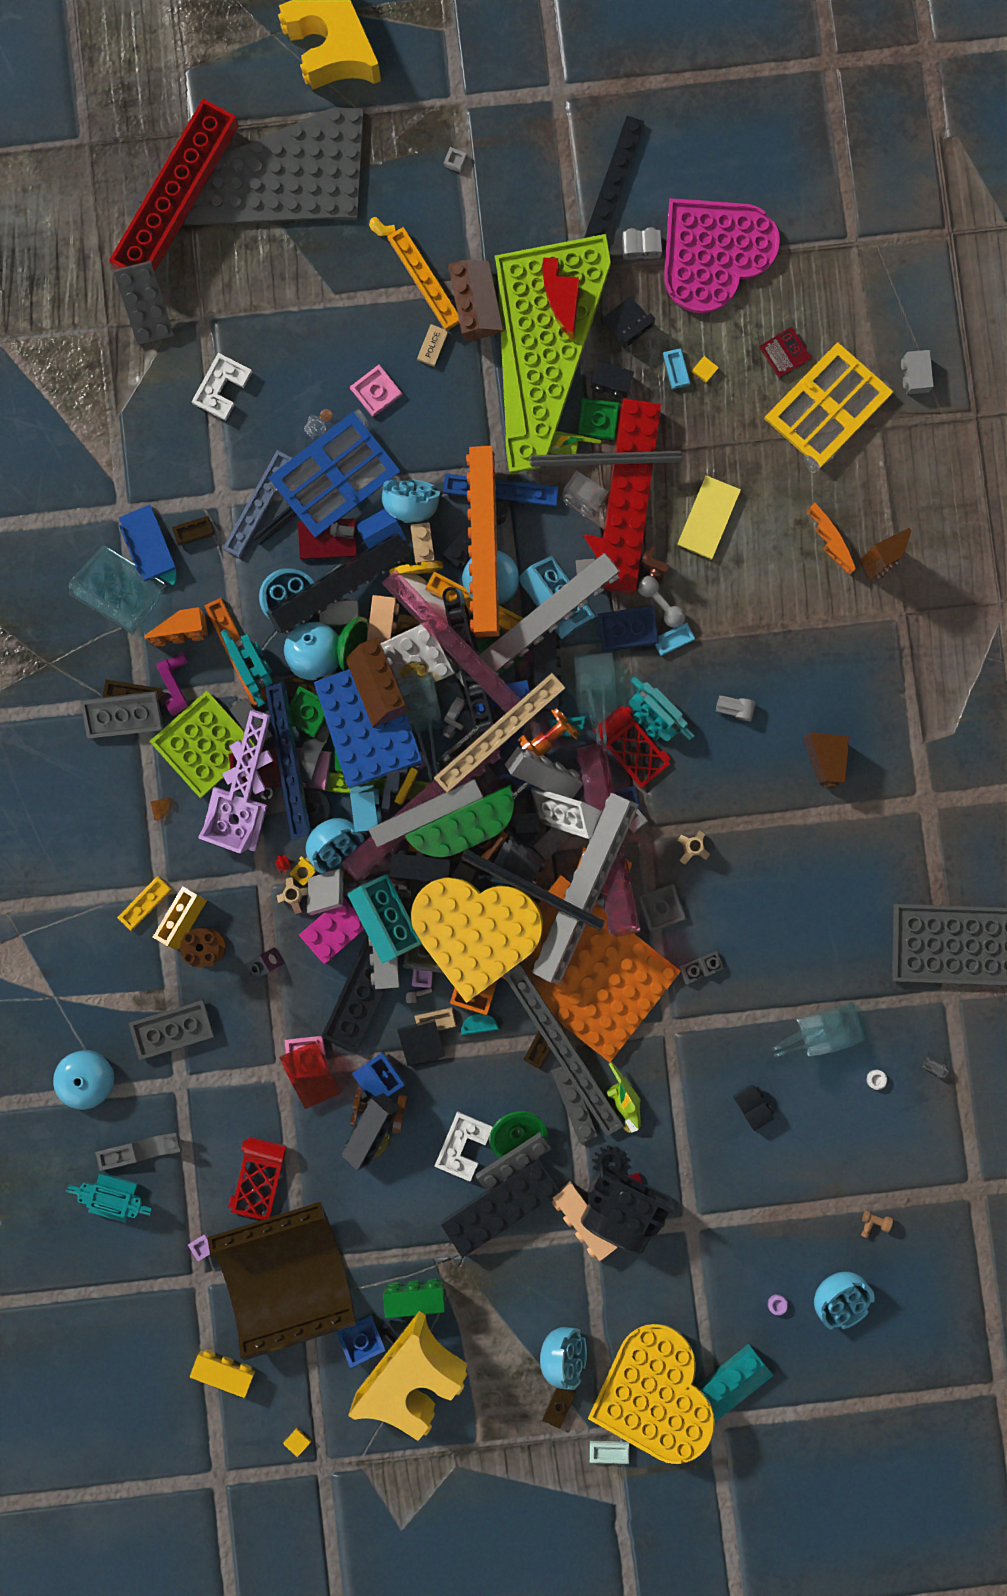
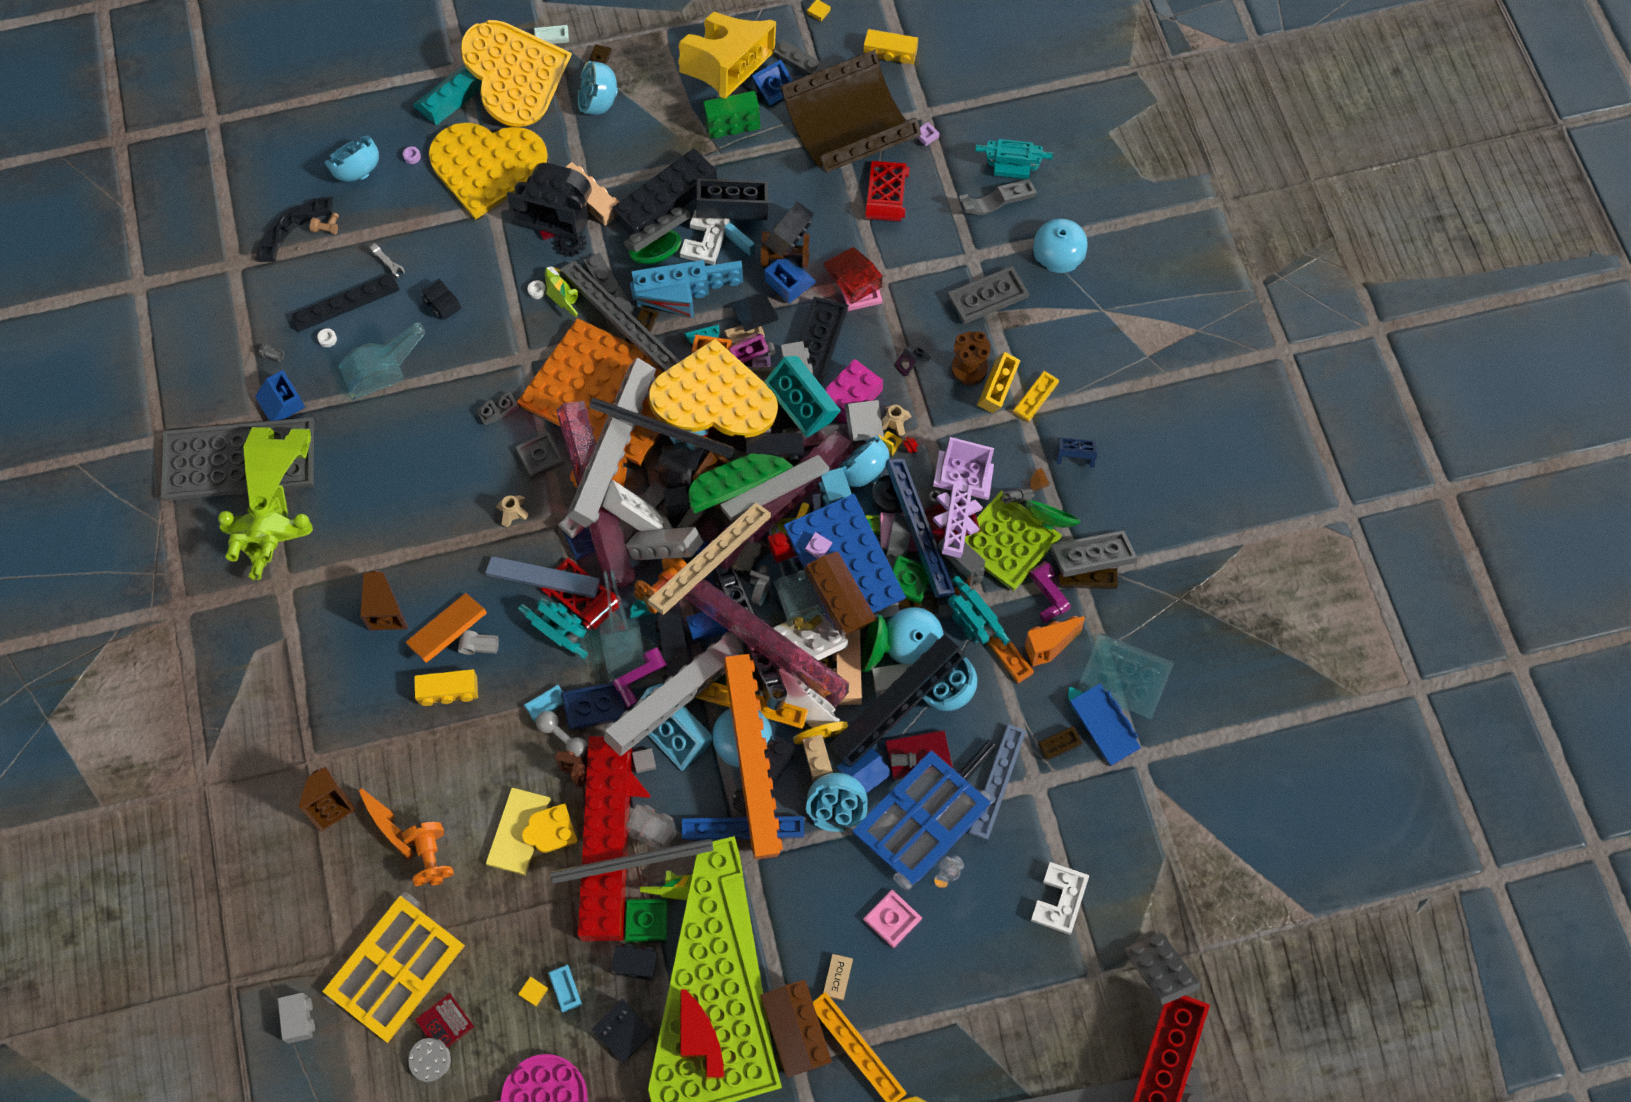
camera: 175 degrees right, 20 degrees down
(111, 841) = (1079, 449): none -> dark blue piece
(152, 759) = (1051, 516): none -> green dish
(184, 787) = (1018, 495): none -> dark grey axle
(324, 1369) = (798, 58): none -> dark grey plate
(391, 732) = (818, 545): none -> lavender plate
(426, 1137) = (740, 239): none -> medium azure tile
(427, 1183) = (732, 199): none -> black brick
(428, 748) = (780, 547): none -> red brick
(433, 995) = (749, 347): none -> magenta slope
(499, 1070) = (676, 293): none -> dark azure wedge
(569, 652) = (654, 662): none -> magenta beam
(650, 1108) = (536, 289): none -> white tile
(667, 768) = (543, 577): none -> sand blue tile
(679, 512) = (550, 829): none -> yellow plate
(694, 1279) = (484, 164): none -> yellow plate
(765, 726) = (446, 627): none -> orange tile
(768, 665) = (446, 687): none -> yellow brick
(794, 506) = (426, 847): none -> orange piece
(800, 320) = (429, 1059): none -> light grey tile
(810, 1167) = (376, 251): none -> light grey piece
(856, 1121) = (345, 302): none -> black plate
(917, 1233) = (288, 222): none -> black tile
(927, 1008) = (279, 397): none -> blue slope
(939, 917) = (267, 518): none -> lime piece

